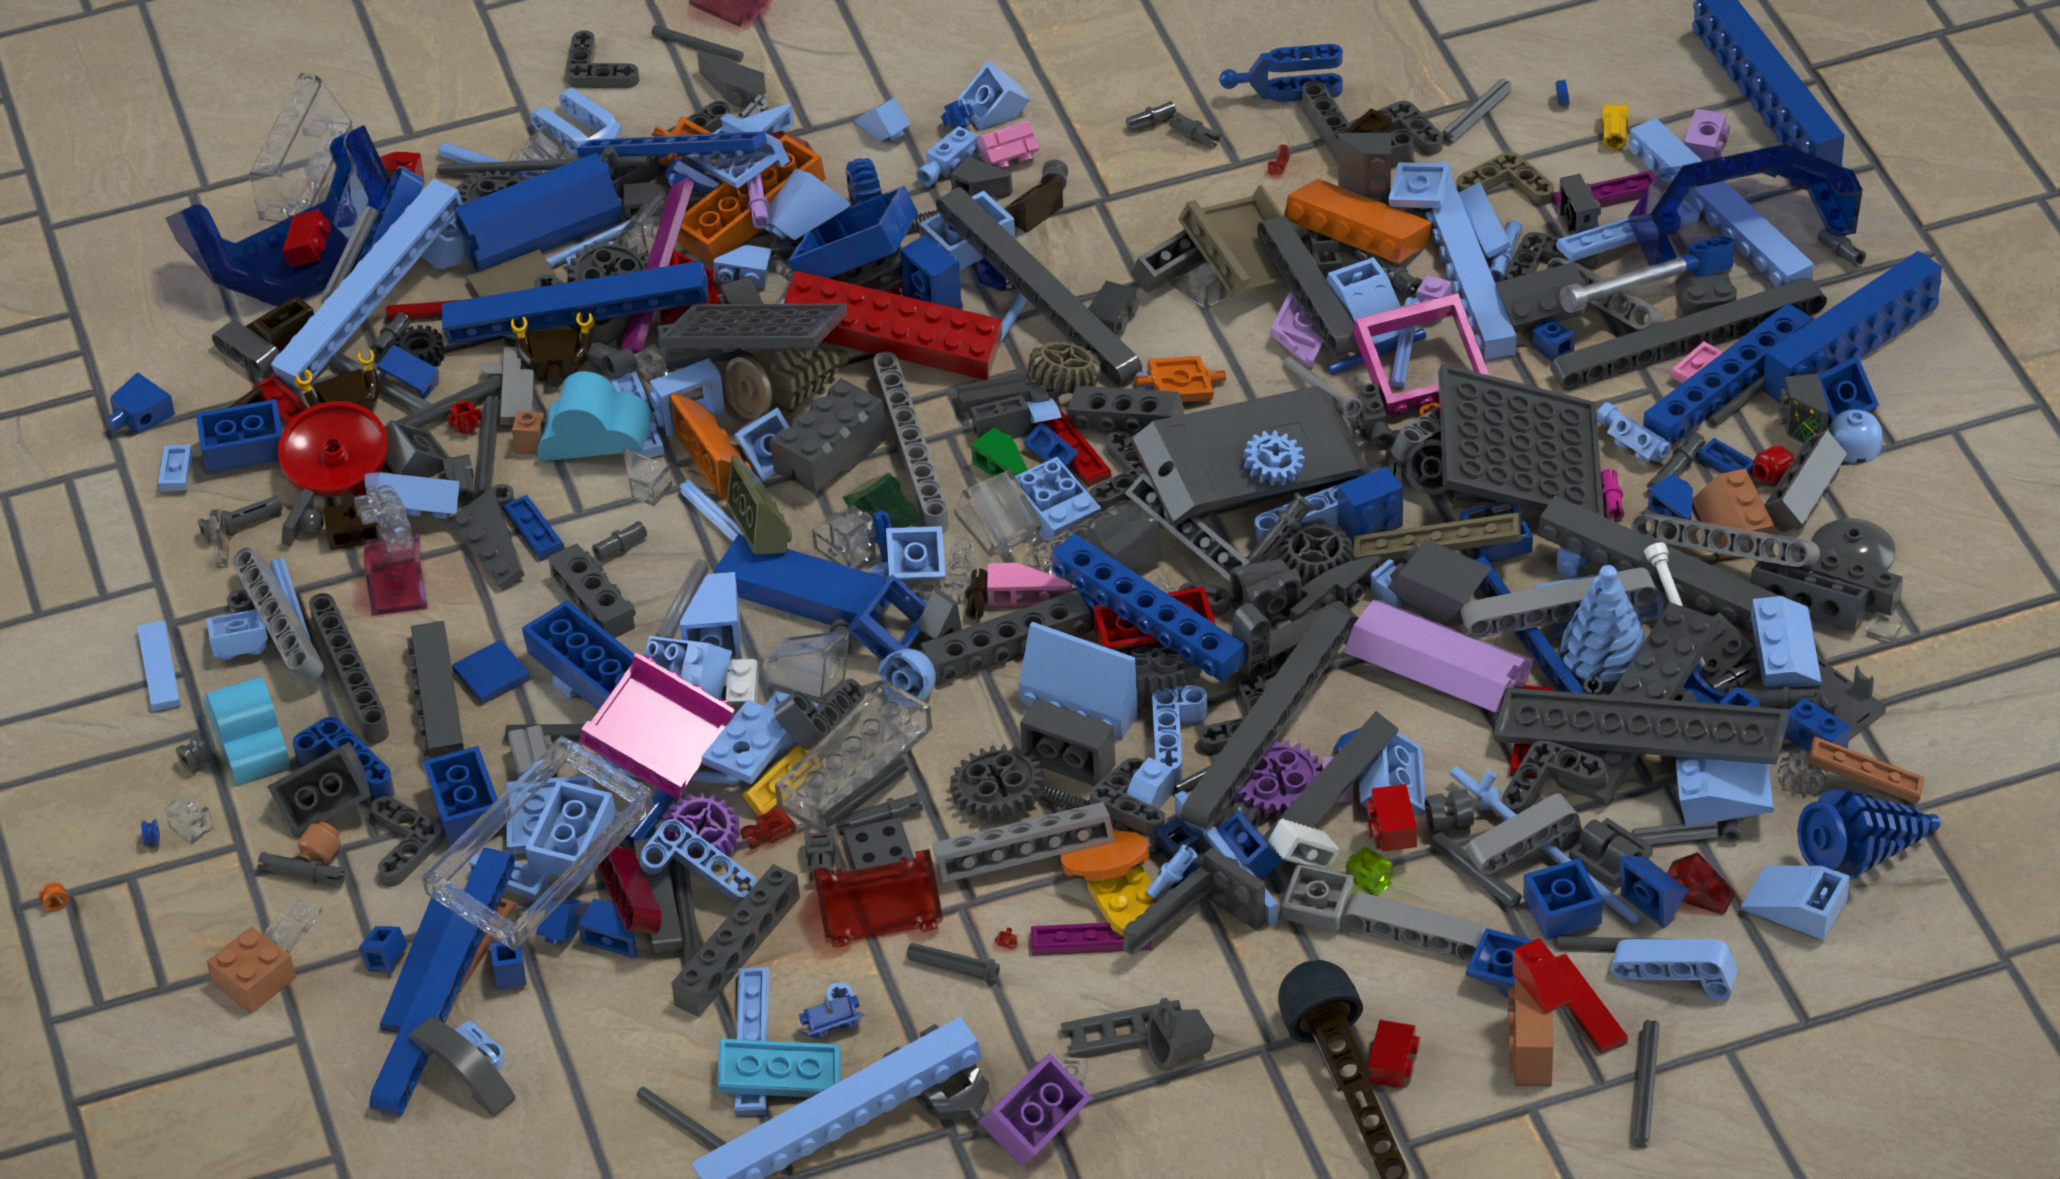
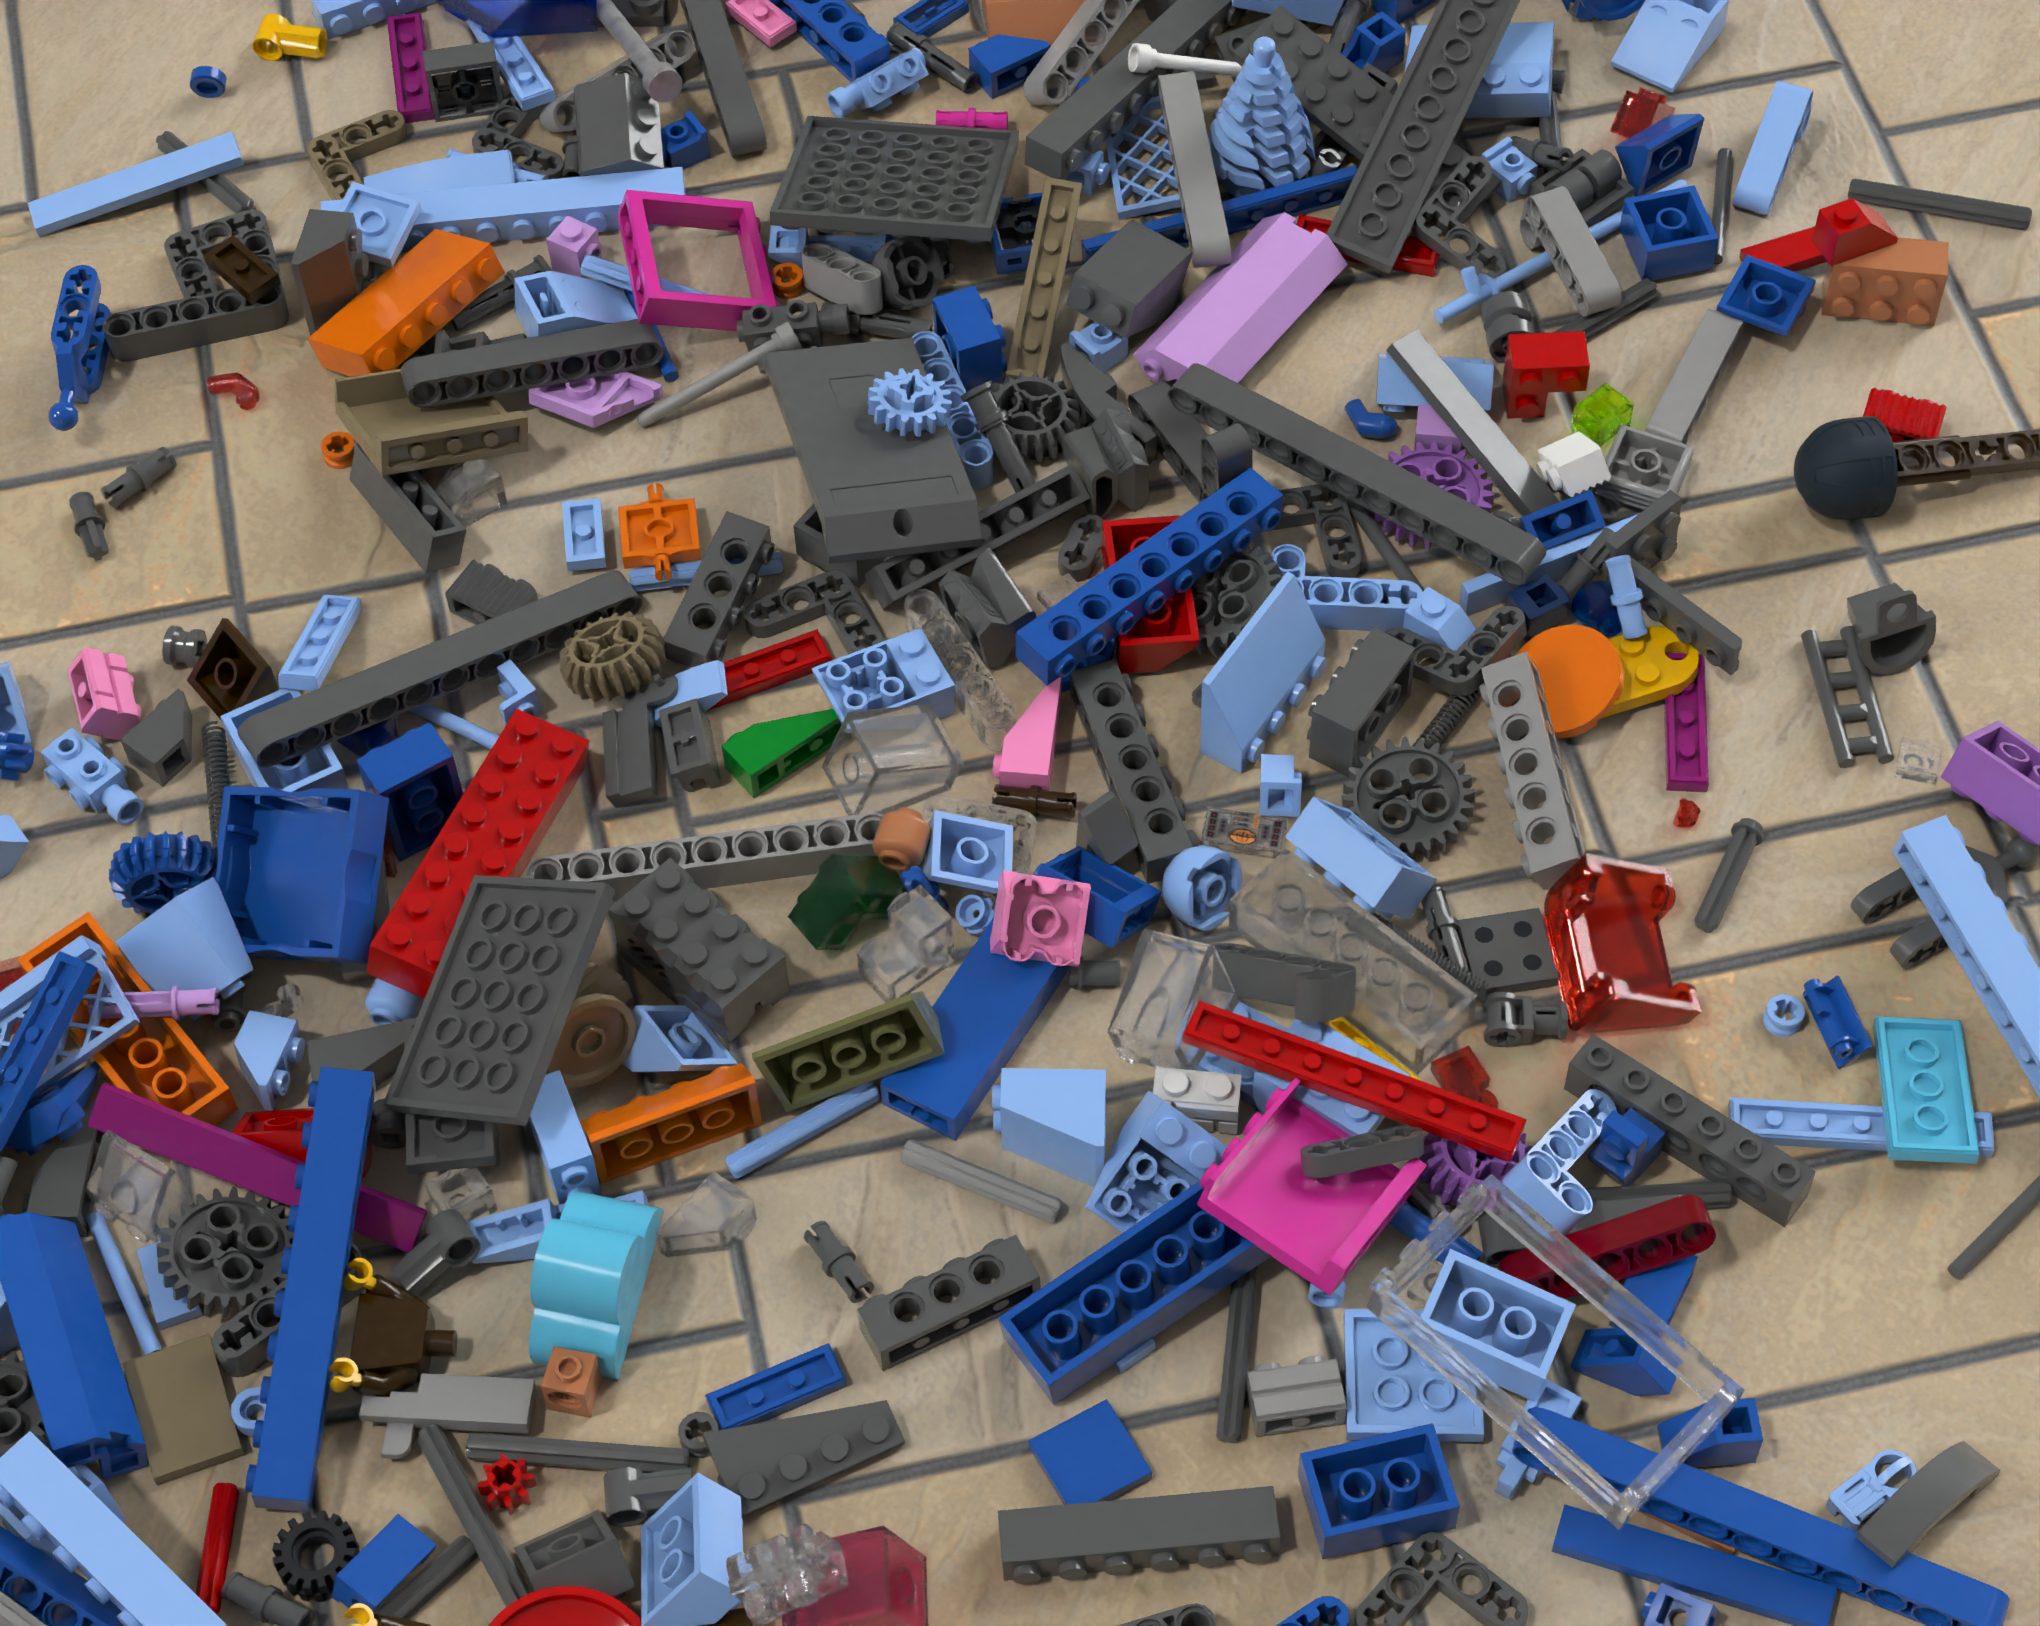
camera: 85 degrees left, 10 degrees up
(685, 750) = (1362, 1151): none -> dark grey beam
(711, 900) = (1627, 1146): none -> blue brick
(736, 741) = (1355, 1081): none -> red tile
(853, 580) = (1039, 918): none -> bright pink slope
(920, 514) = (901, 839): none -> nougat head
(928, 746) = (1359, 859): none -> light blue brick
(965, 704) = (1244, 832): none -> tile
(998, 710) = (1279, 786): none -> light blue brick
(1034, 333) = (516, 692): none -> light blue bracket
(1049, 445) = (762, 691): blue slope -> none
(1057, 230) = (320, 643): none -> light blue tile
(1177, 344) = (584, 534): none -> light blue plate
(1454, 76) = (135, 183): none -> light blue tile
(1623, 804) = (1512, 168): none -> light blue brick
(1637, 812) = (1543, 153): none -> dark grey pin

